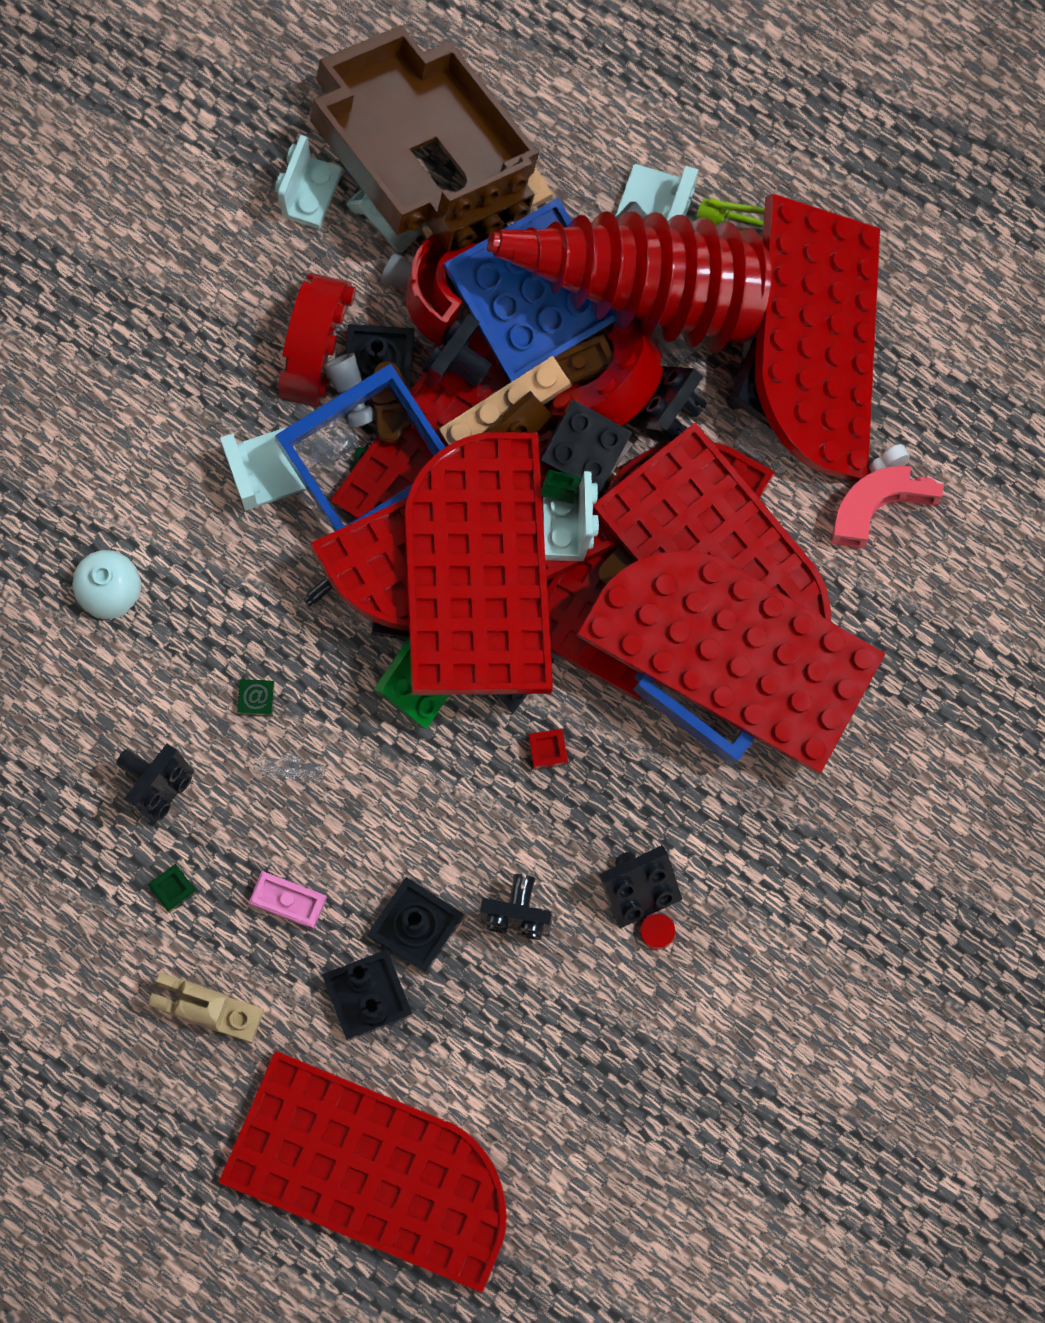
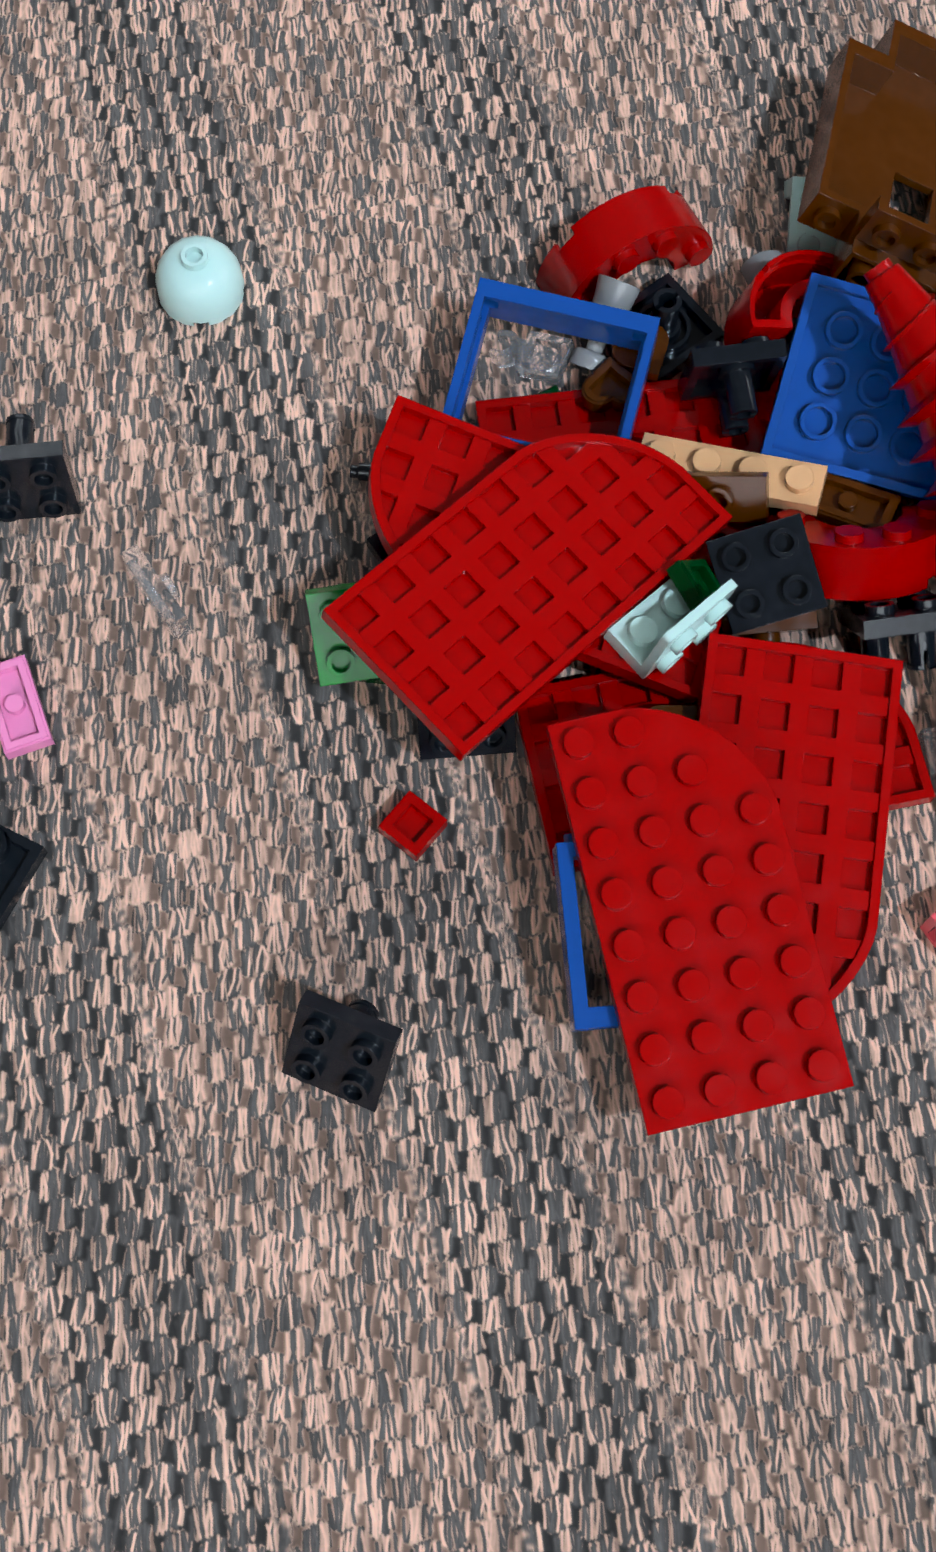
camera: 45 degrees right, 5 degrees down
(256, 697) = (208, 504): dark green tile -> none
(260, 470) = (435, 313): light aqua bracket -> none
(306, 186) = (762, 123): light aqua bracket -> none
(416, 925) = (97, 855): black plate -> none
(517, 913) = (195, 941): black plate -> none
(657, 931) = (314, 1116): red tile -> none

